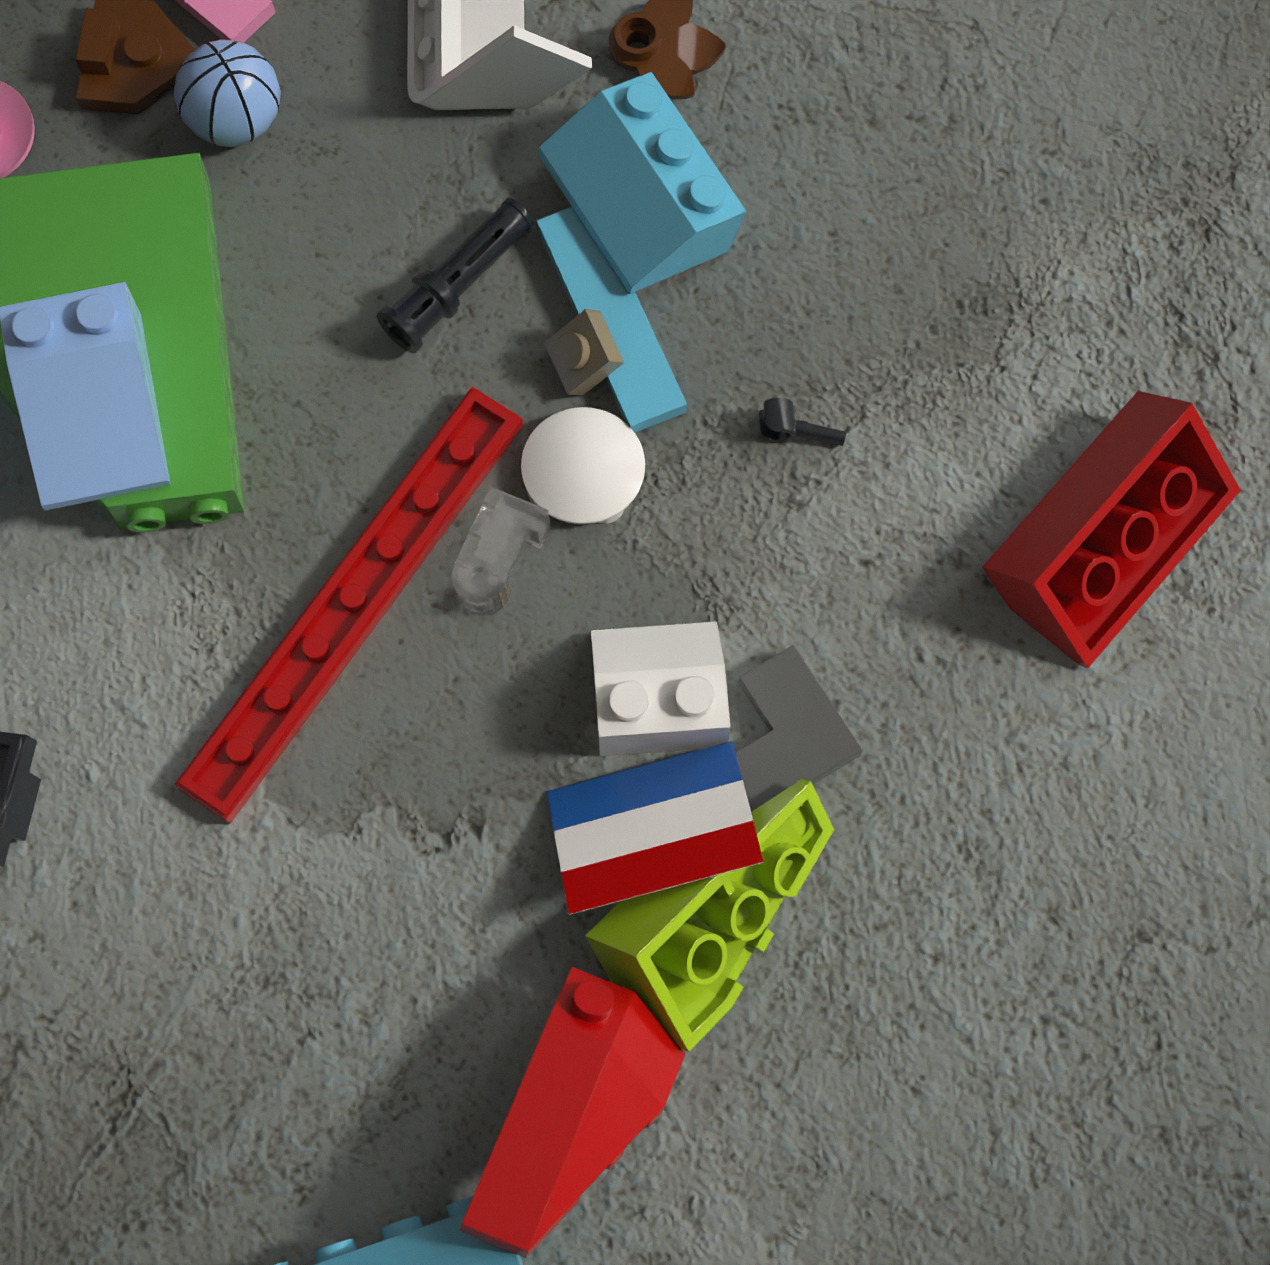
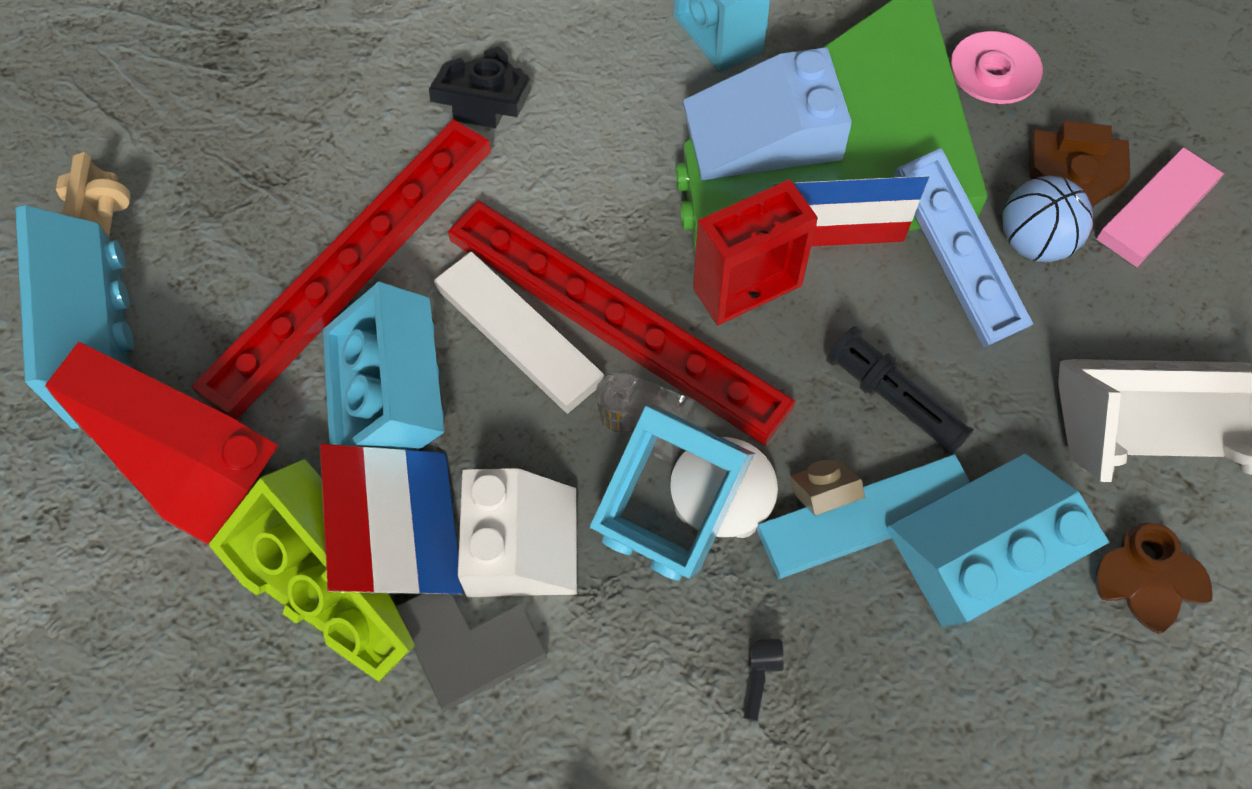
camera: 95 degrees right, 10 degrees down
(231, 314) = (863, 209): none -> sticker
(267, 188) = (965, 251): none -> light blue tile
(281, 944) = (340, 271): none -> red plate
(298, 411) = (753, 248): none -> red window
(375, 717) = (519, 332): none -> white tile
(455, 874) = (383, 372): none -> medium azure slope
(560, 470) = (626, 536): none -> medium azure window

